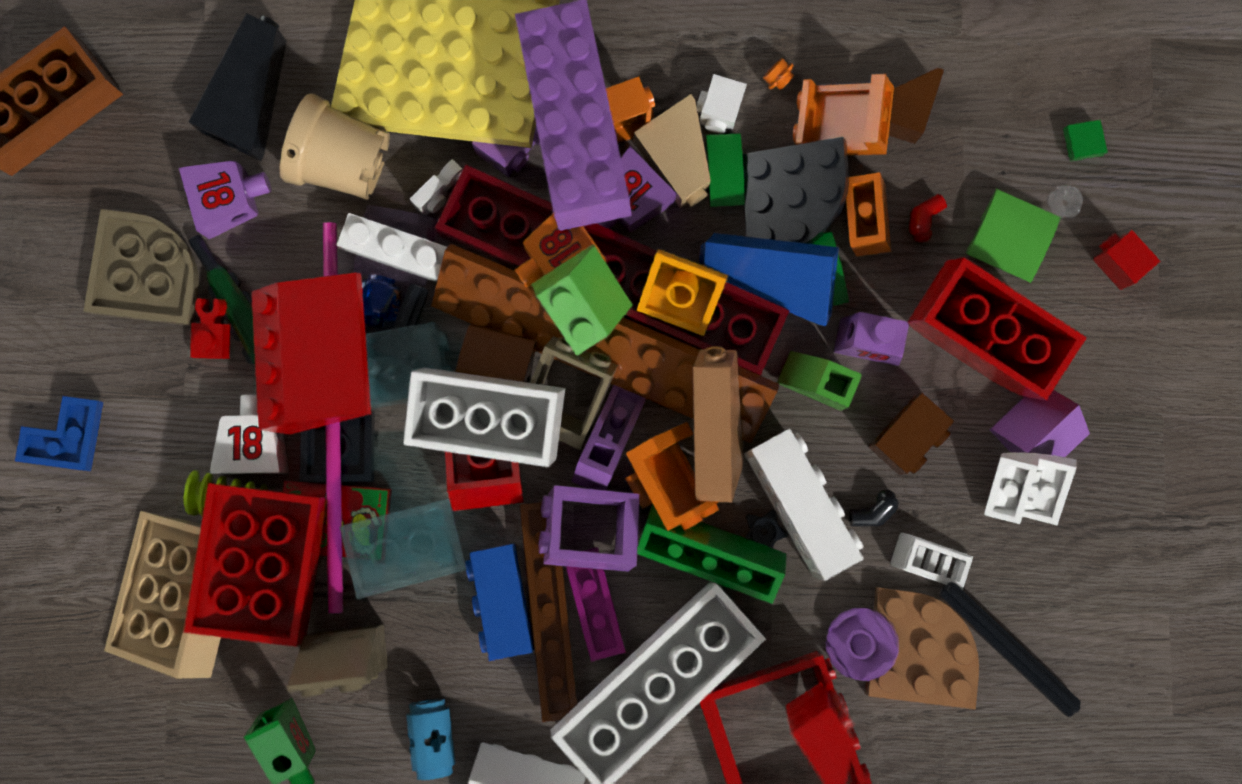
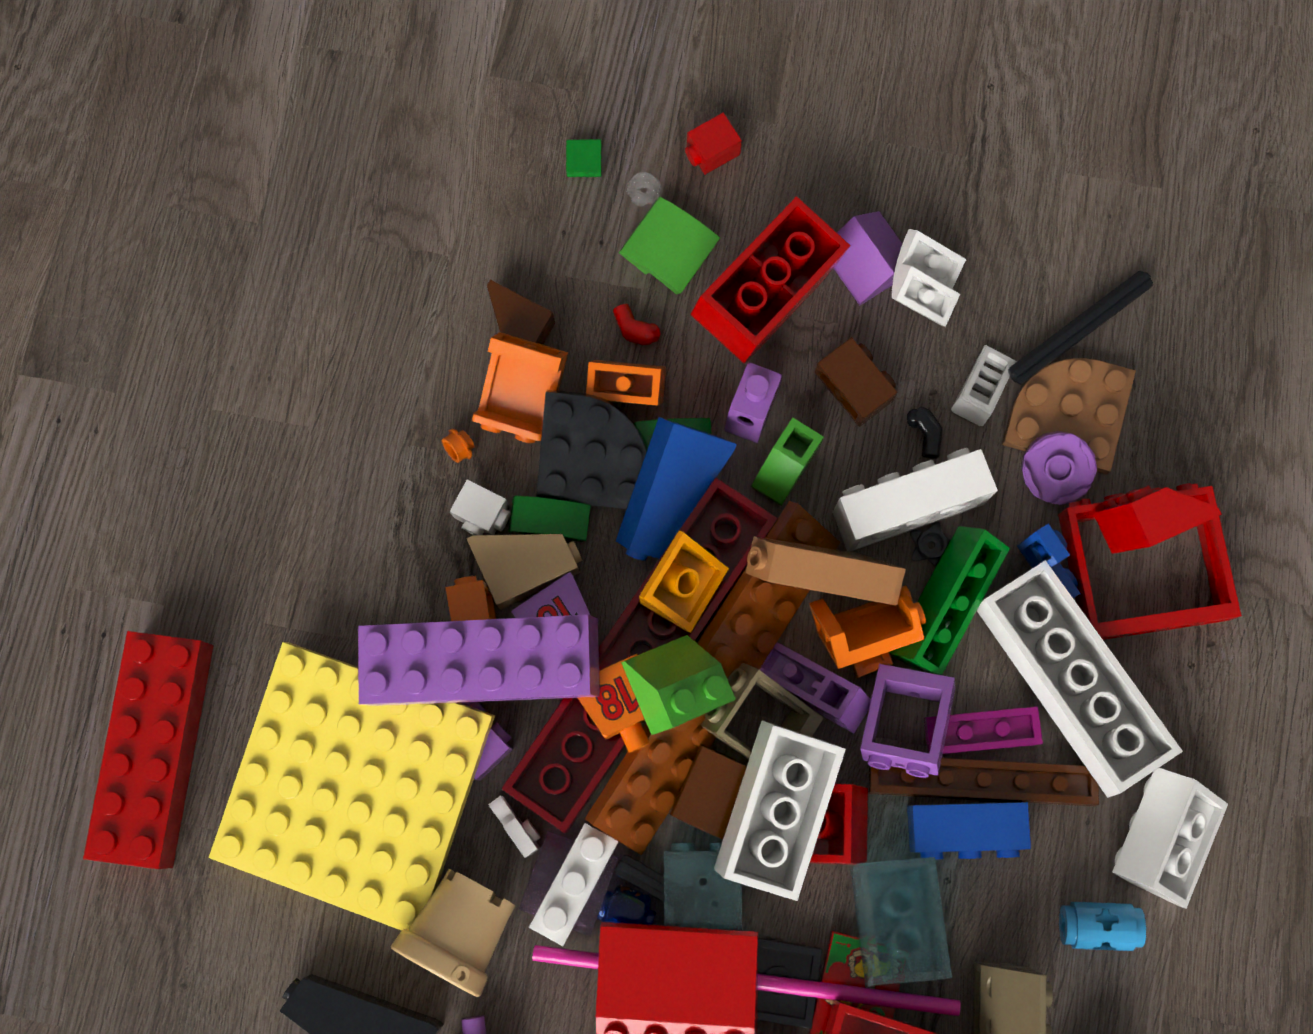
camera: 75 degrees left, 5 degrees down
(779, 641) = (1049, 546): none -> blue plate

